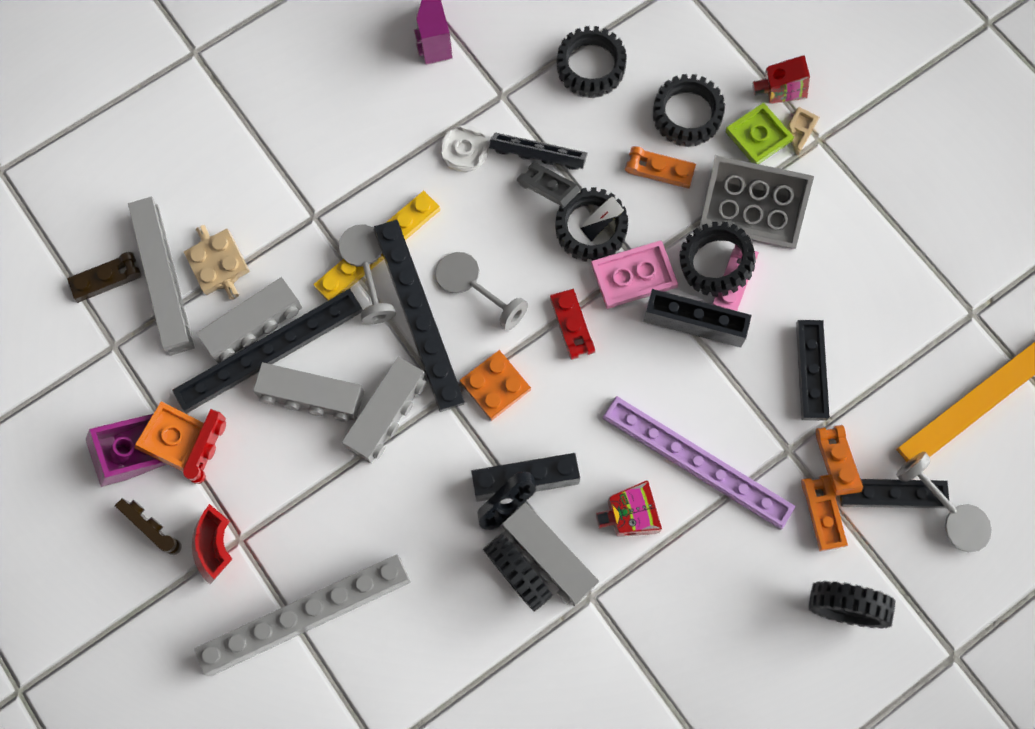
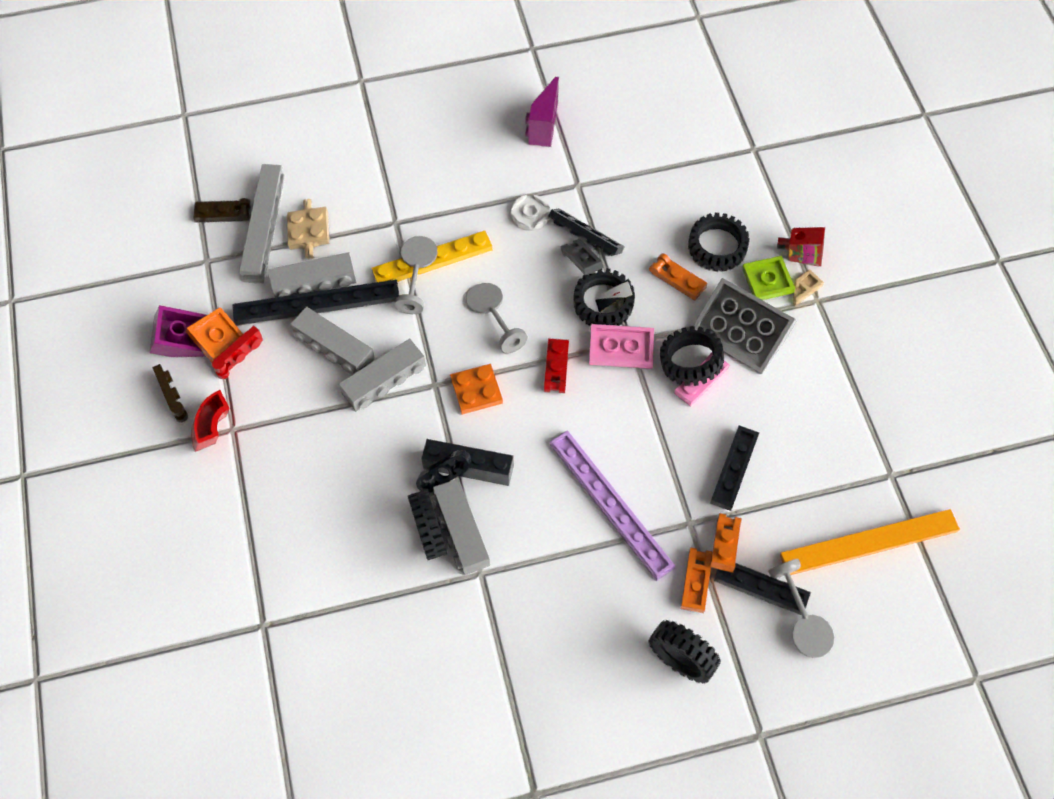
camera: 20 degrees right, 10 degrees down
(302, 616) = (252, 498): light grey brick -> none
(419, 316) = (439, 318): black plate -> none
(596, 38) = (657, 164): black tyre -> none
(631, 512) = (539, 519): torso -> none
(697, 318) = (656, 393): black brick -> none

